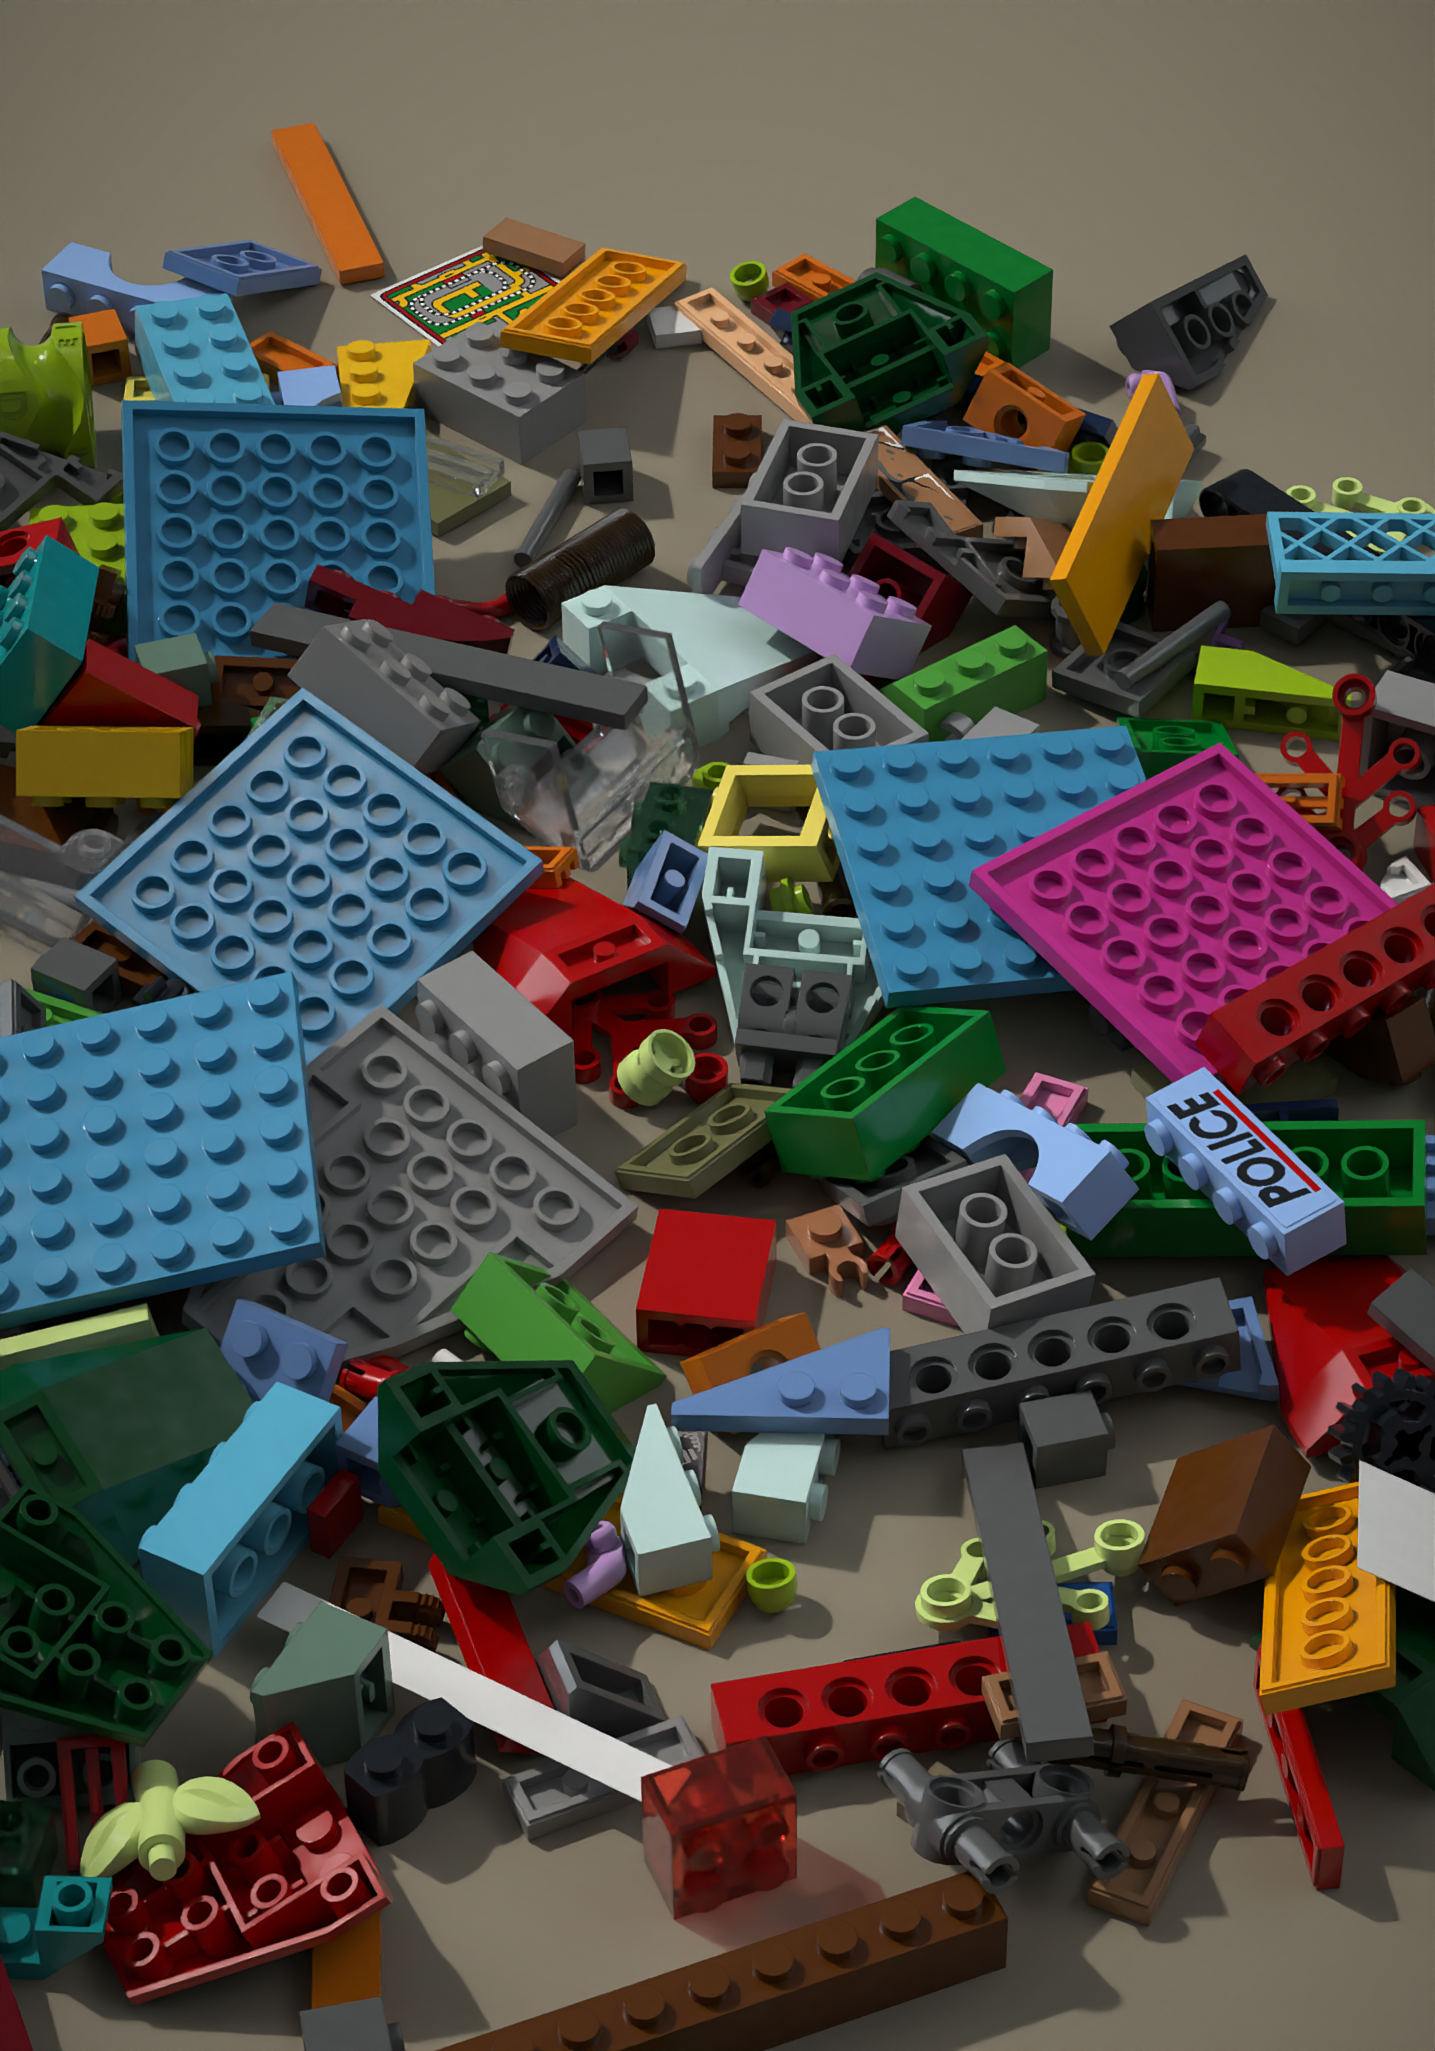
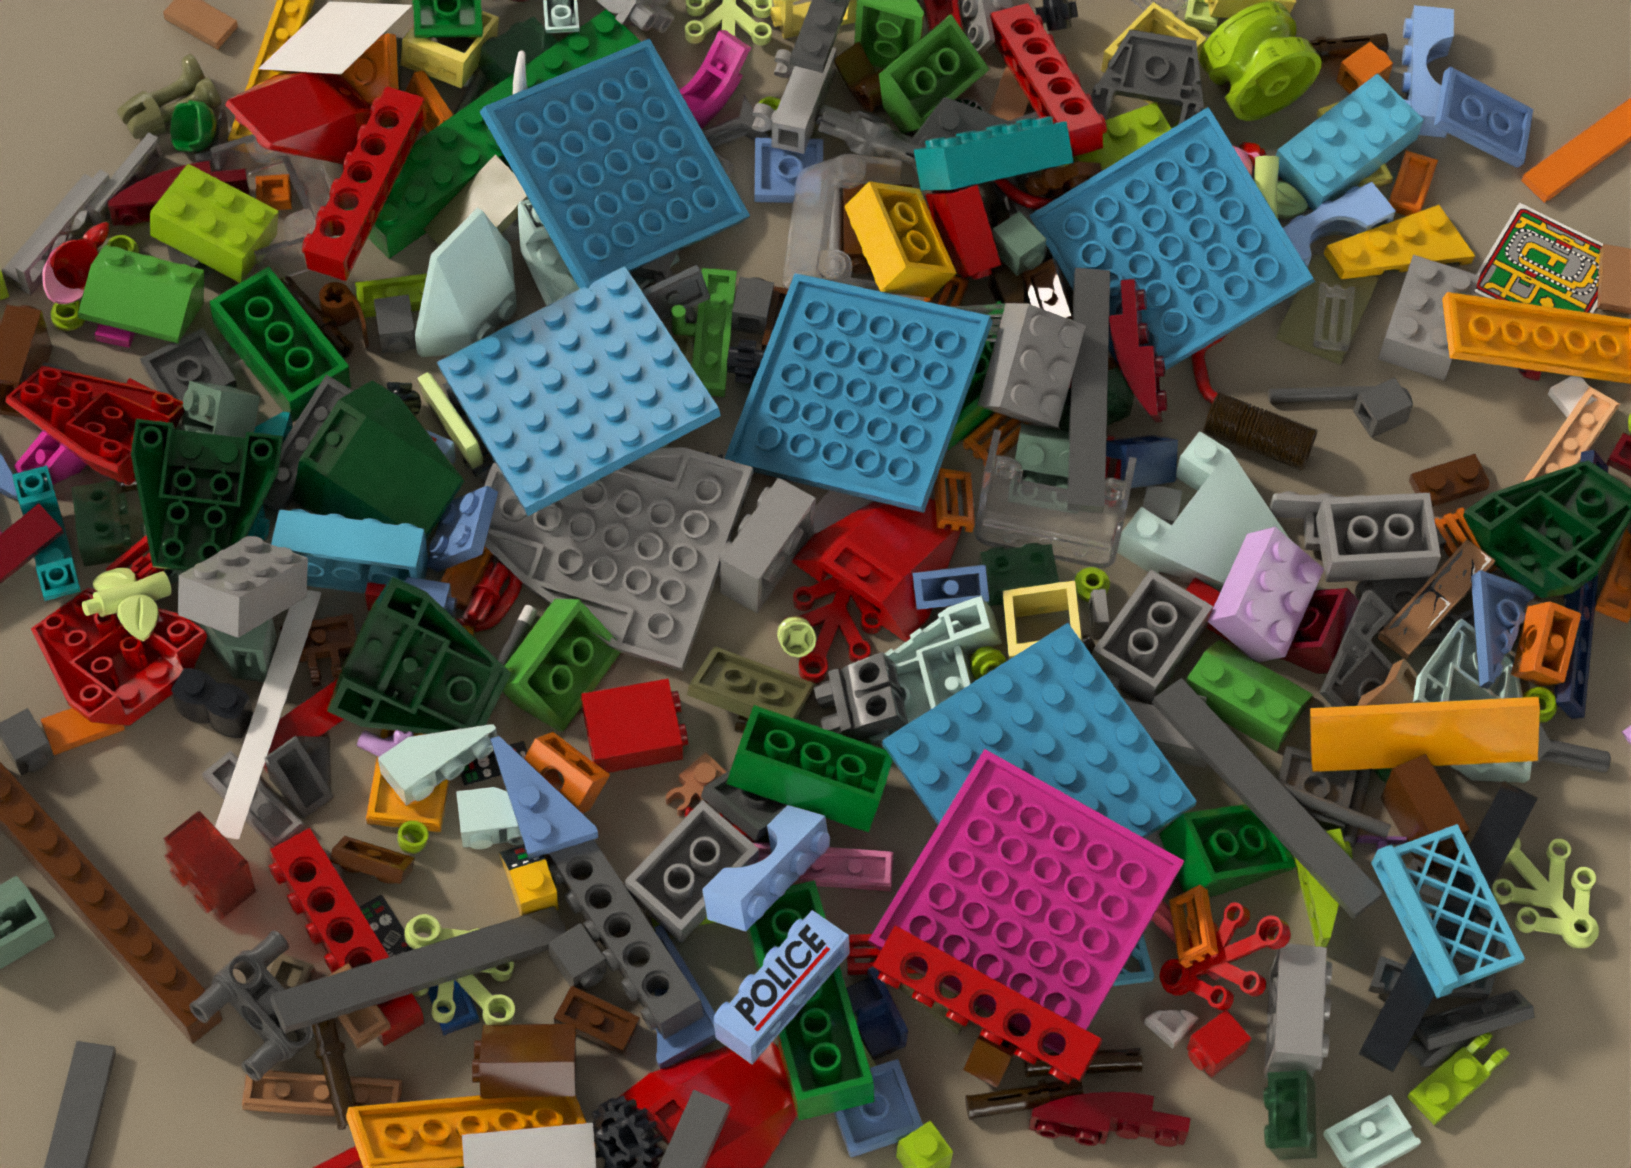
camera: 65 degrees right, 20 degrees up
(270, 1606) = (242, 586): none -> light grey brick
(800, 1630) = (371, 859): none -> reddish brown plate
(910, 1466) = (529, 880): none -> yellow slope
(1135, 686) = (1267, 798): none -> dark grey tile
(1151, 1453) = (597, 1020): none -> reddish brown plate

